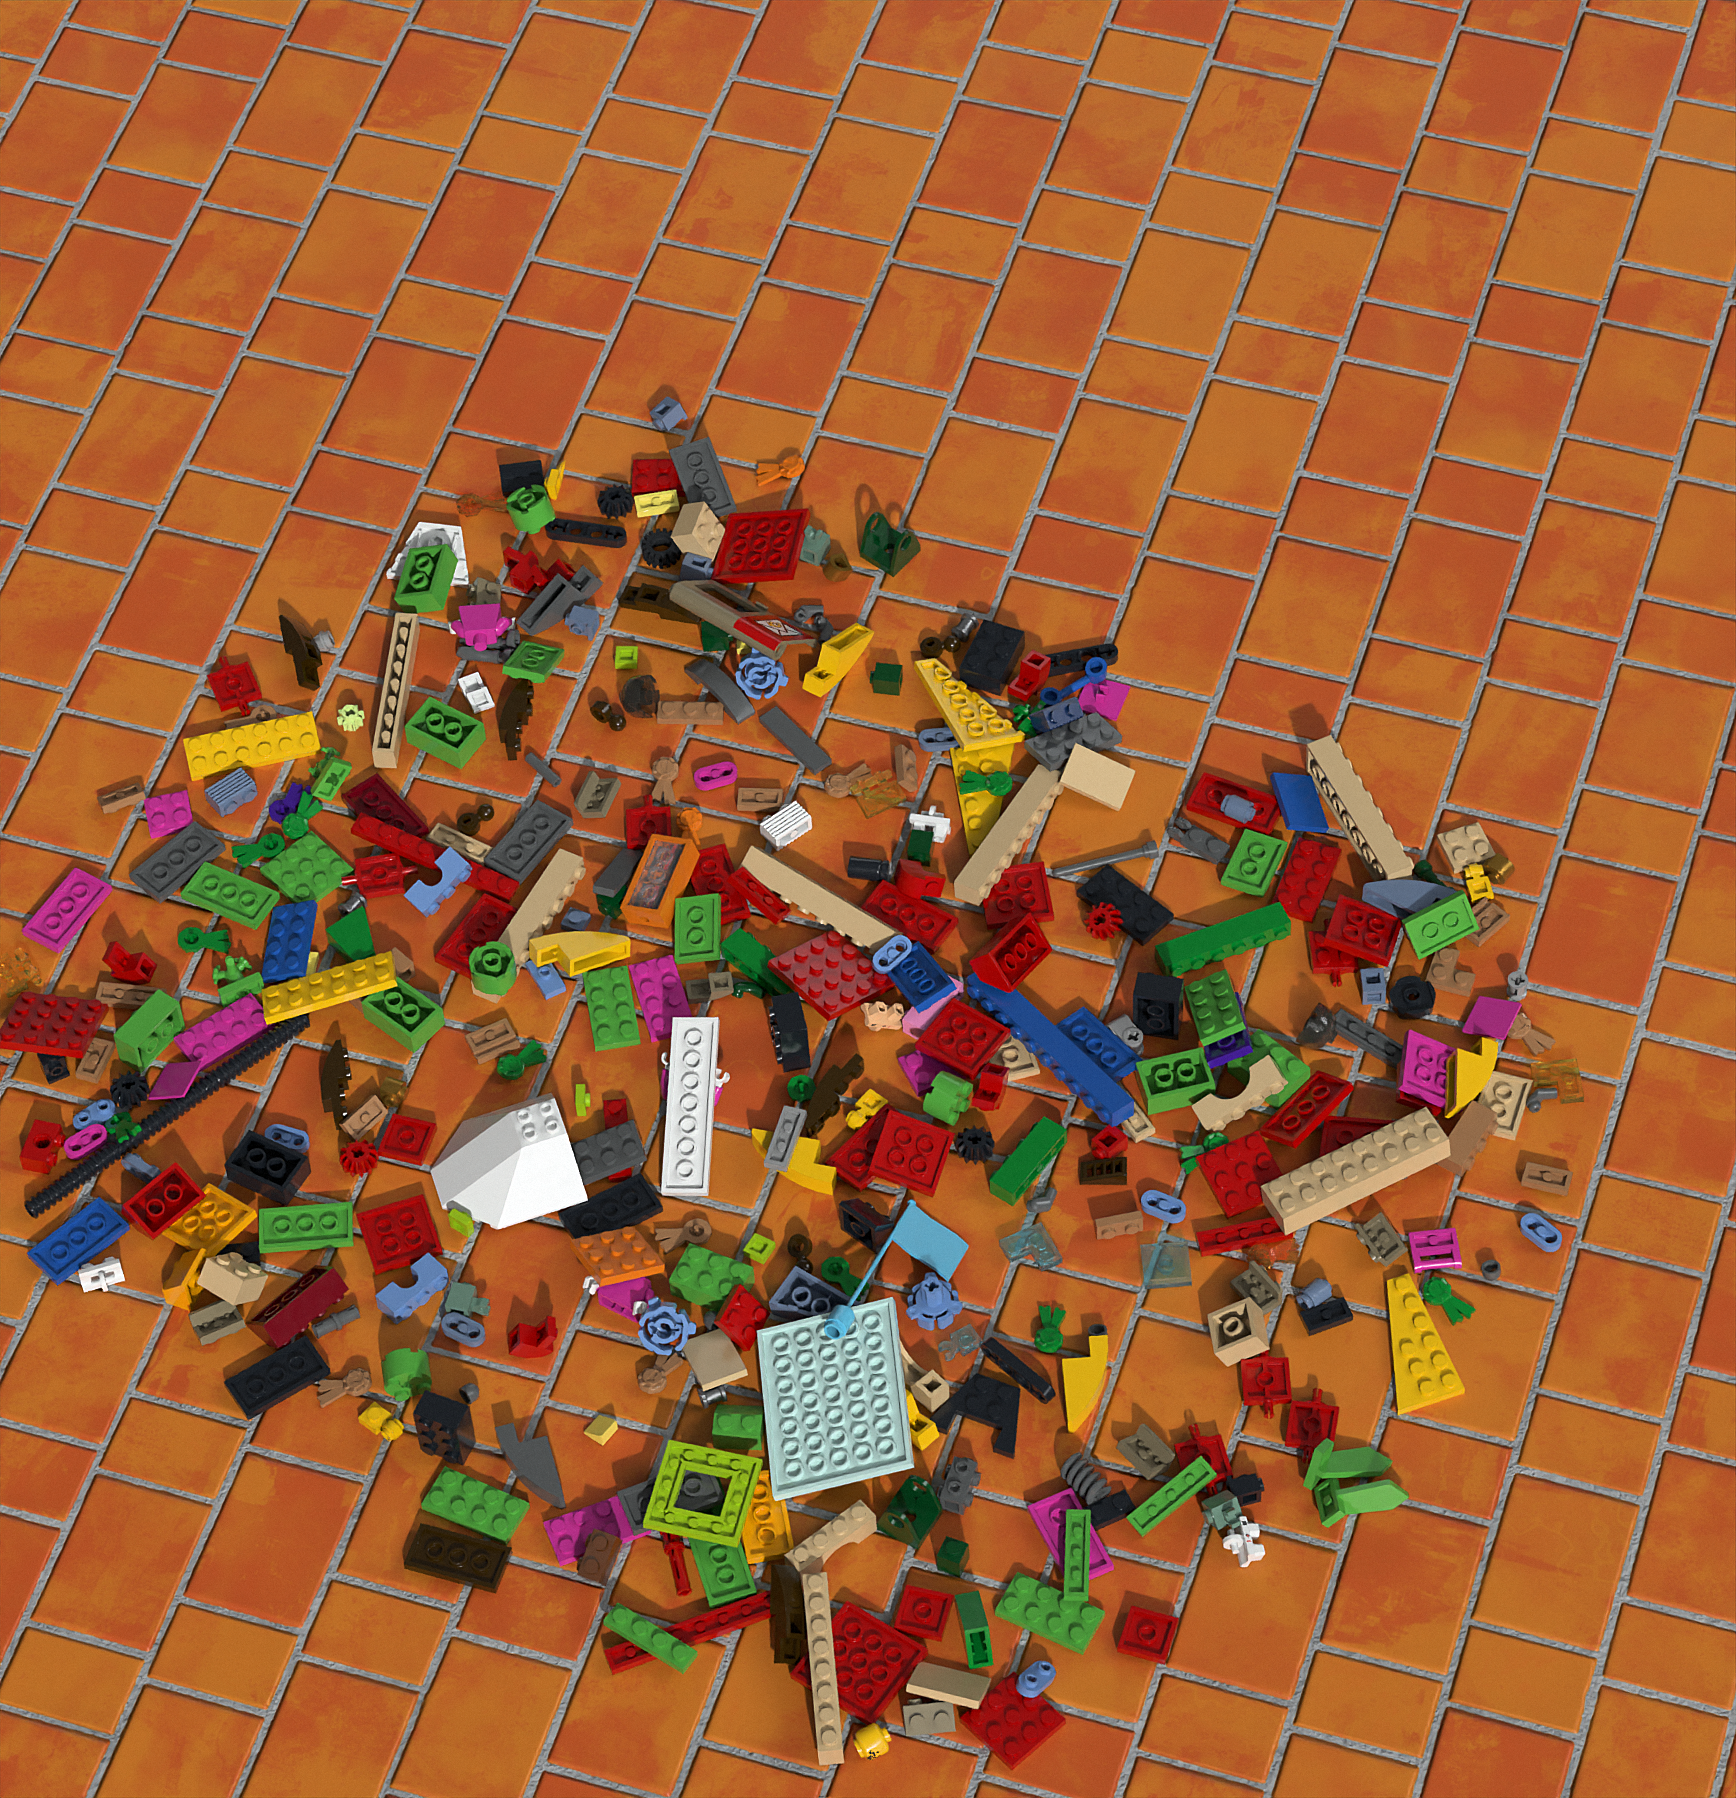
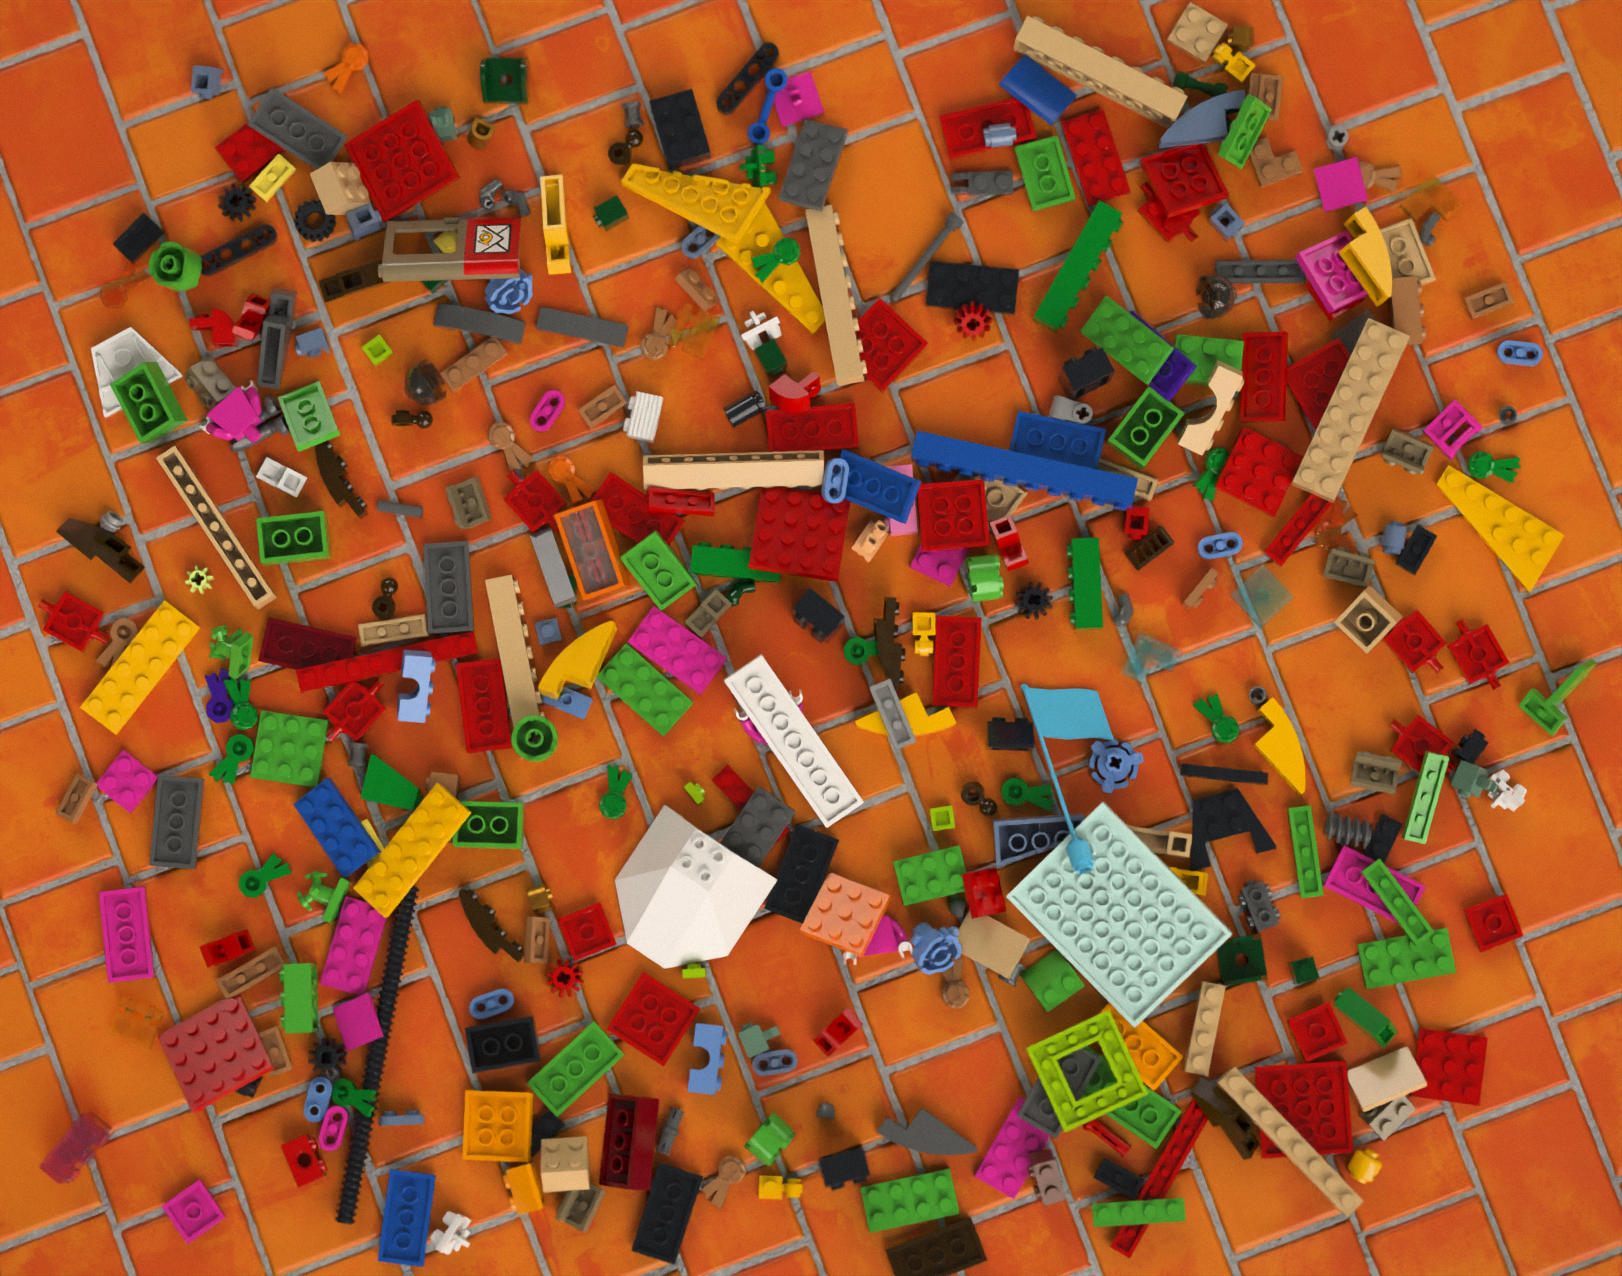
camera: 40 degrees left, 30 degrees up
(162, 1202) = (448, 1138): red slope -> none
(230, 895) = (249, 821): bright green plate -> none
(231, 792) = (164, 724): sand blue brick -> none
(492, 1041) = (578, 793): medium nougat plate -> none
(554, 481) = (167, 222): yellow plate -> none
(601, 1429) = (949, 1064): light yellow slope -> none
(658, 1605) = (1118, 1178): none -> black plate
(695, 1232) = (880, 840): medium nougat piece -> none
(911, 1153) = (994, 649): red plate -> none
(963, 1341) = (1163, 779): clear light blue plate -> none
(1011, 954) = (929, 410): red slope -> none
(1032, 676) = (728, 128): red brick -> none
(1034, 1473) = (1305, 852): none -> bright green plate
(1035, 1679) = (1443, 1022): medium blue plate -> none
(1056, 715) = (783, 152): dark blue brick -> none
(1096, 777) = (861, 187): tan tile -> none
(1344, 1463) = (1531, 669): bright green piece -> none
(1412, 1008) = (1263, 222): black plate -> none

